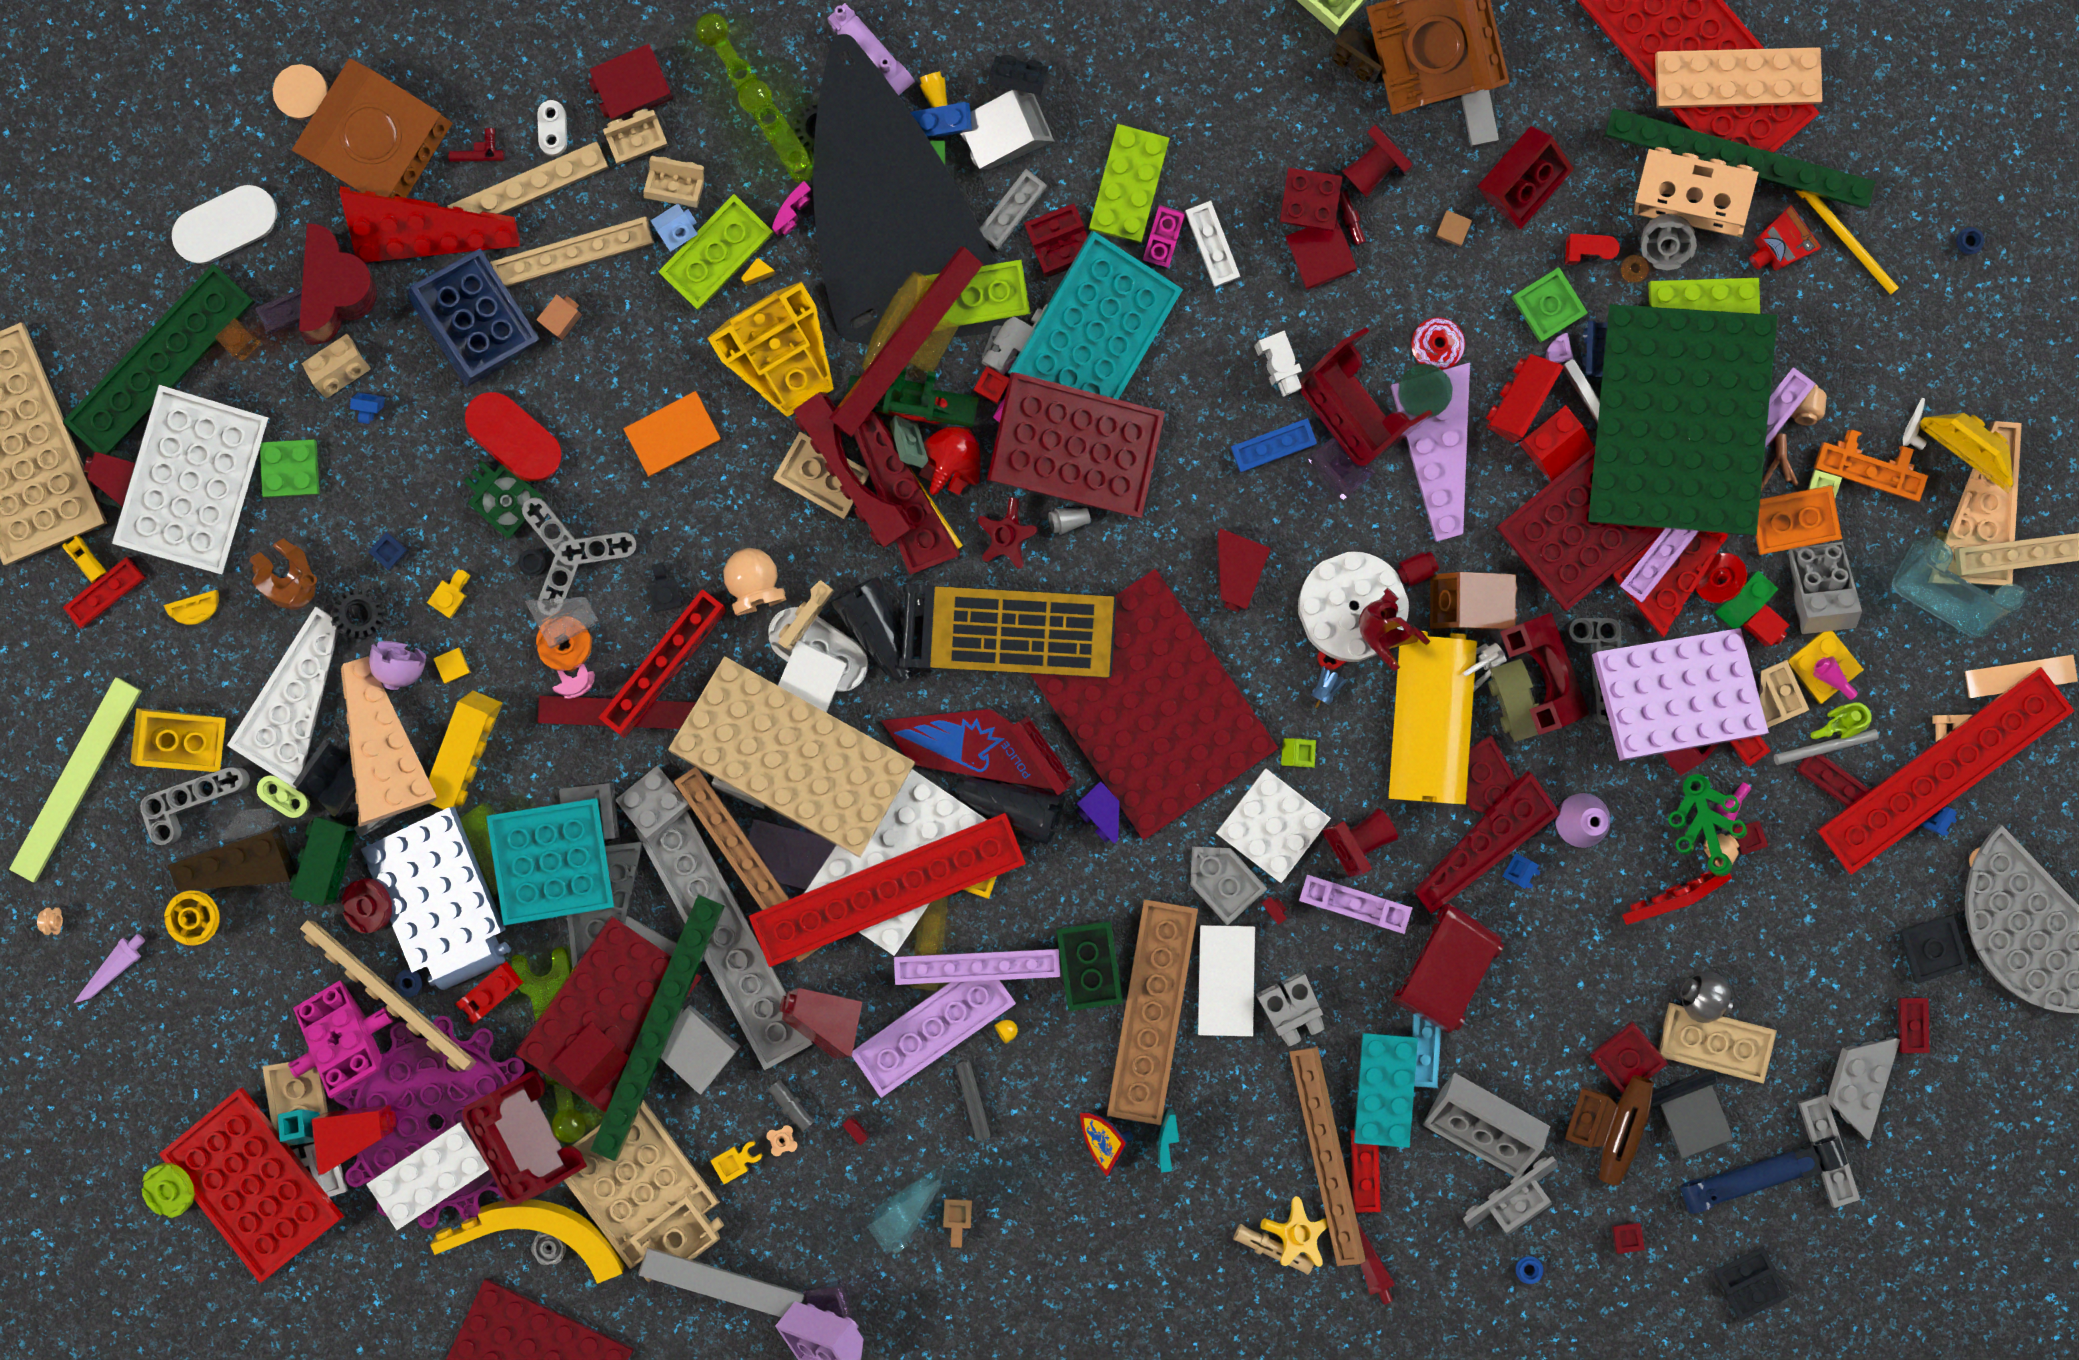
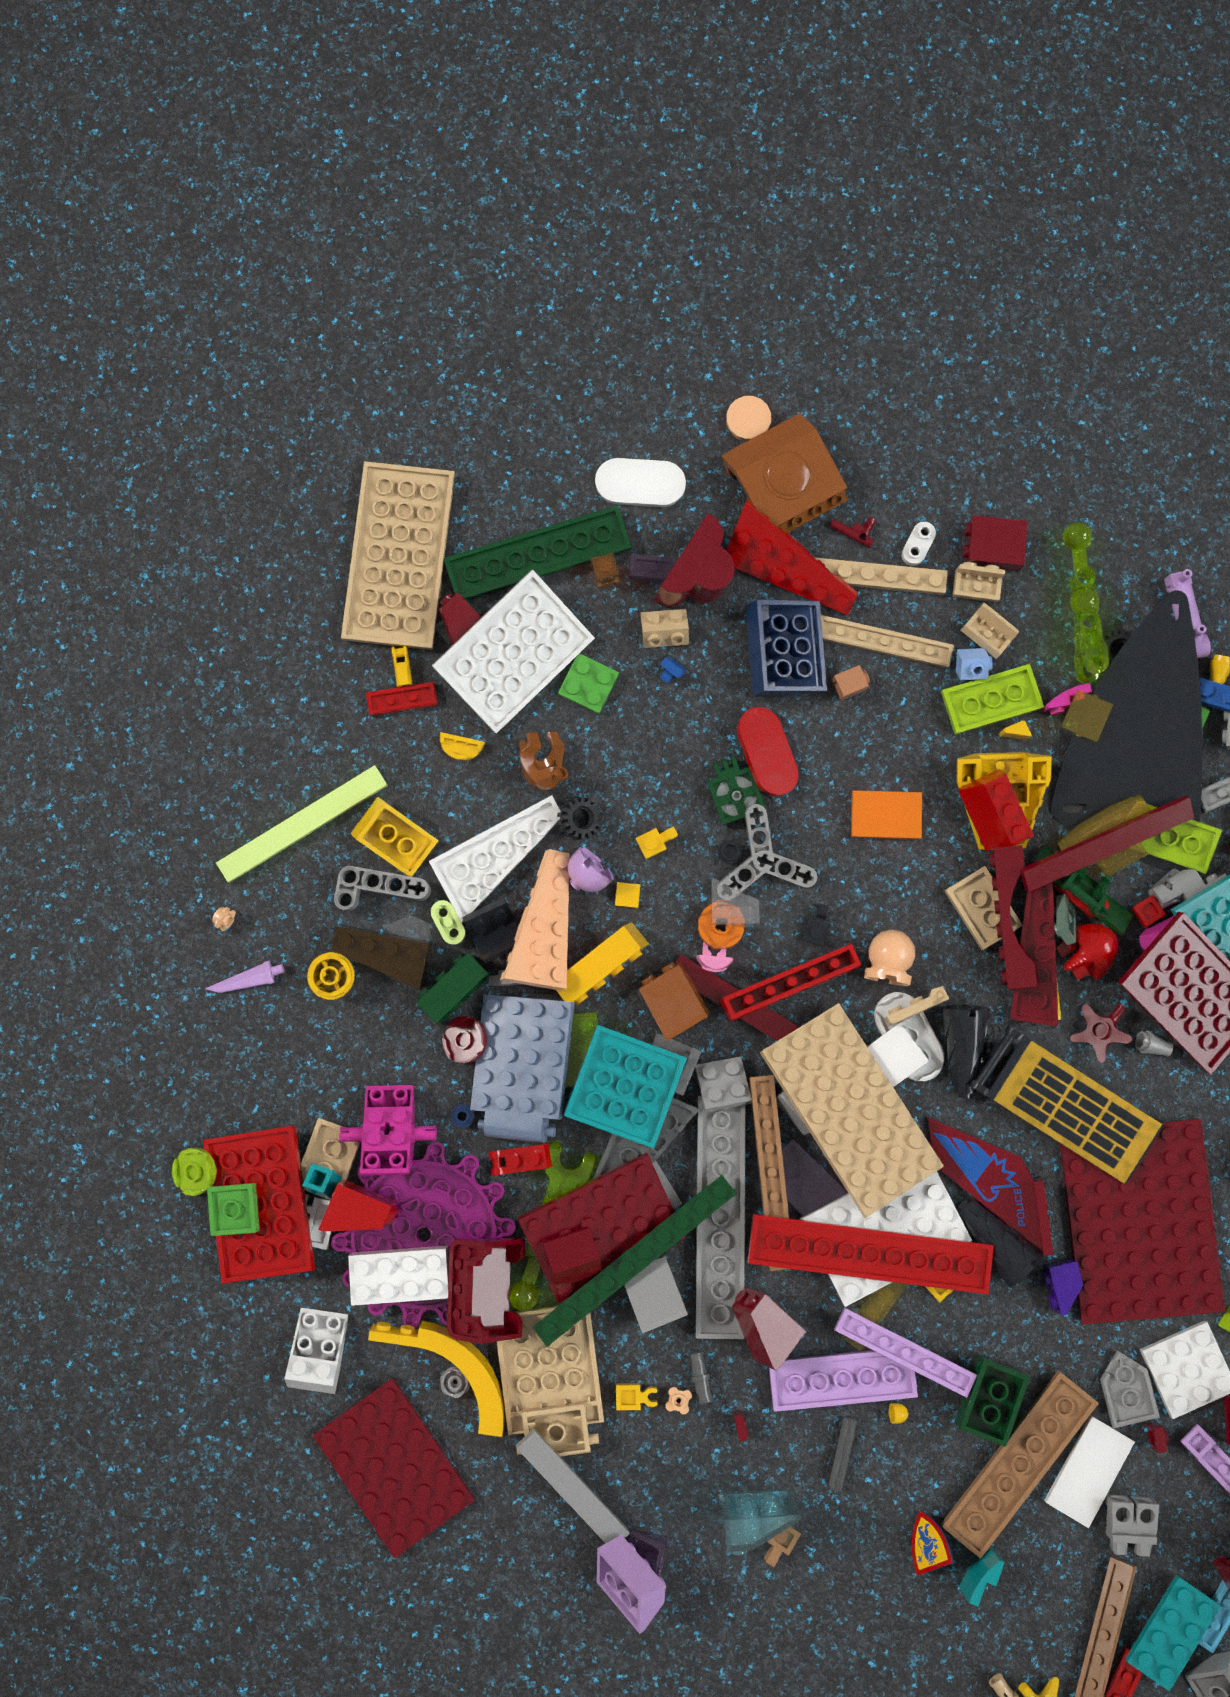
camera: 35 degrees right, 5 degrees down
(226, 1204) = (233, 1209): none -> bright green plate
(379, 989) = (445, 1128): tan plate -> none
(388, 551) = (628, 784): dark blue plate -> none
(393, 1296) = (317, 1351): none -> white slope
(554, 747) = (673, 1000): none -> dark orange slope
(776, 370) = (995, 811): none -> red slope
(819, 217) = (1087, 715): none -> clear yellow piece

